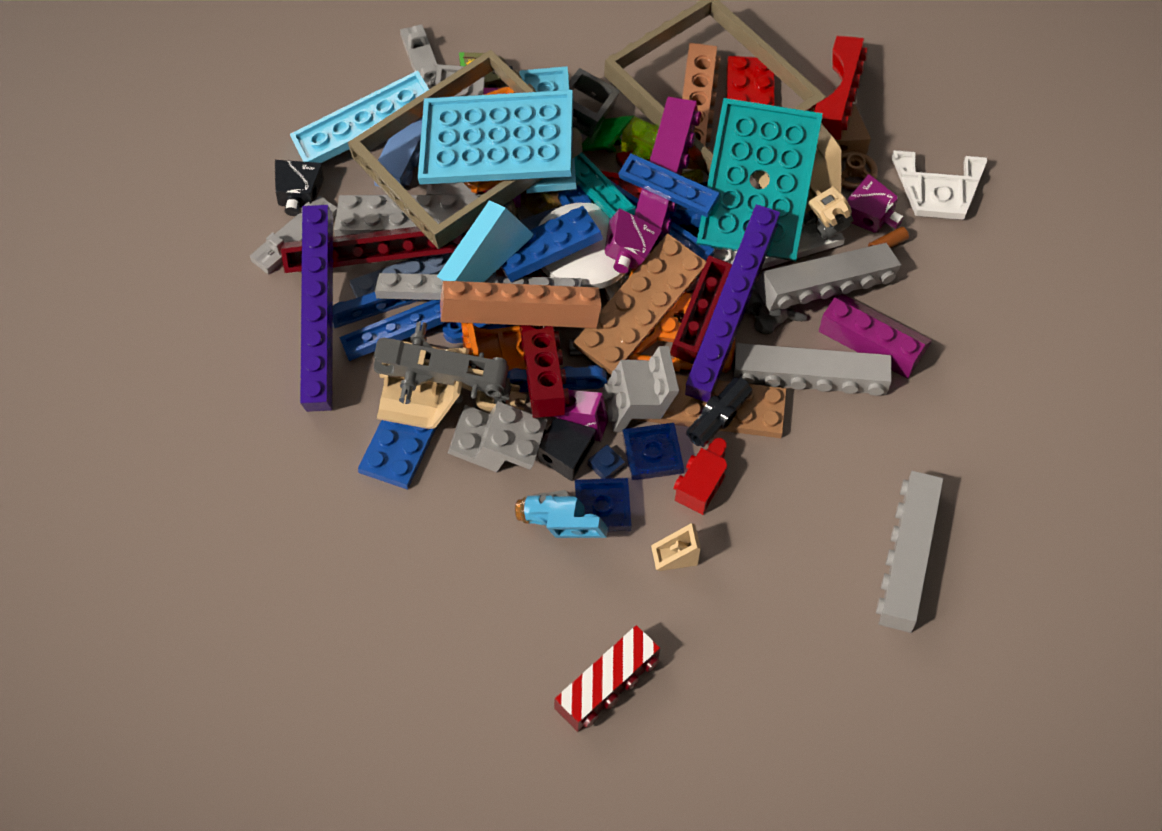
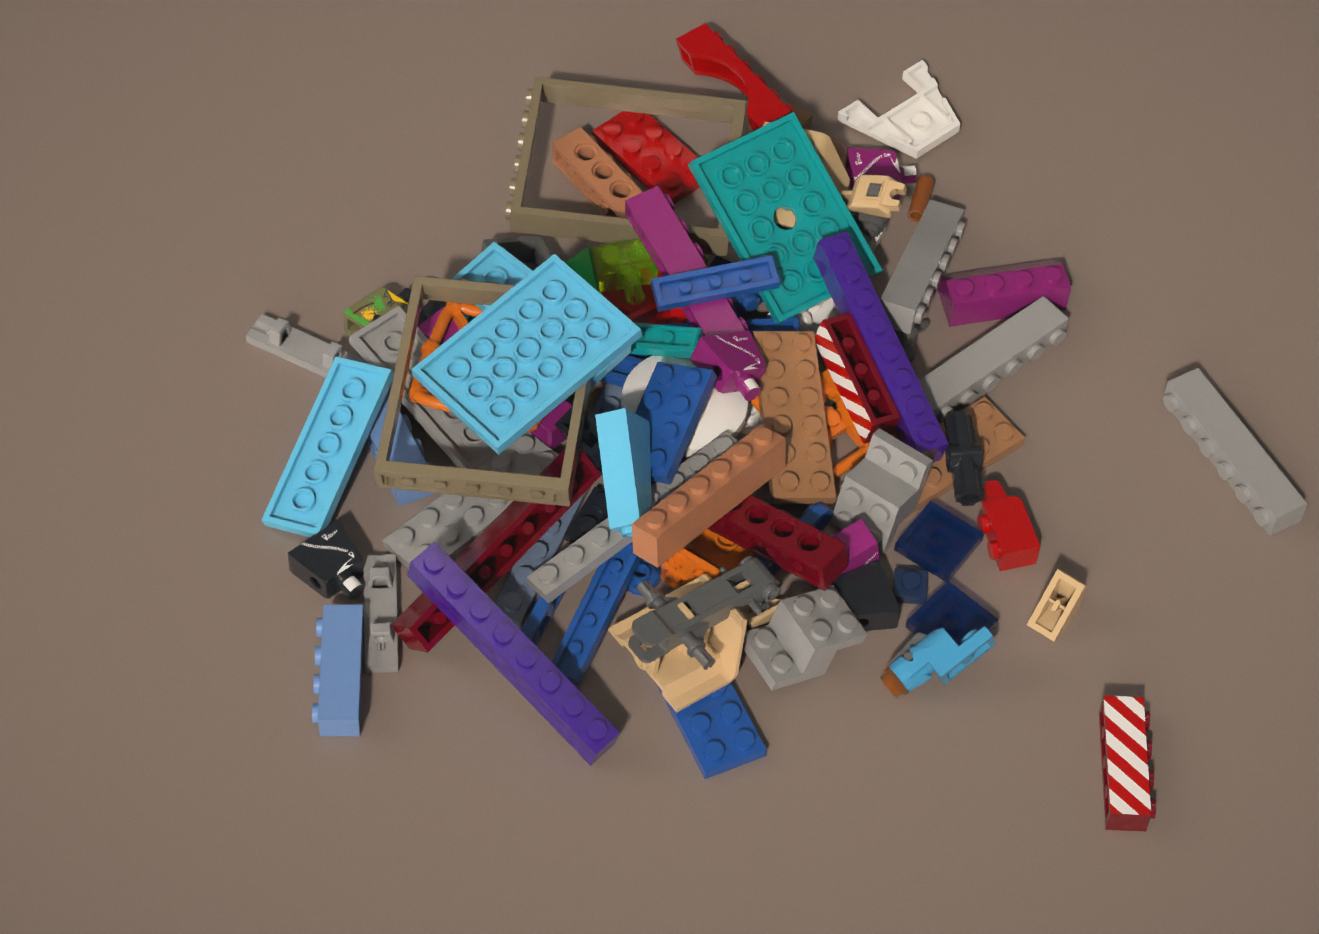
camera: 45 degrees left, 5 degrees down
(232, 247) = (340, 670): none -> medium blue brick

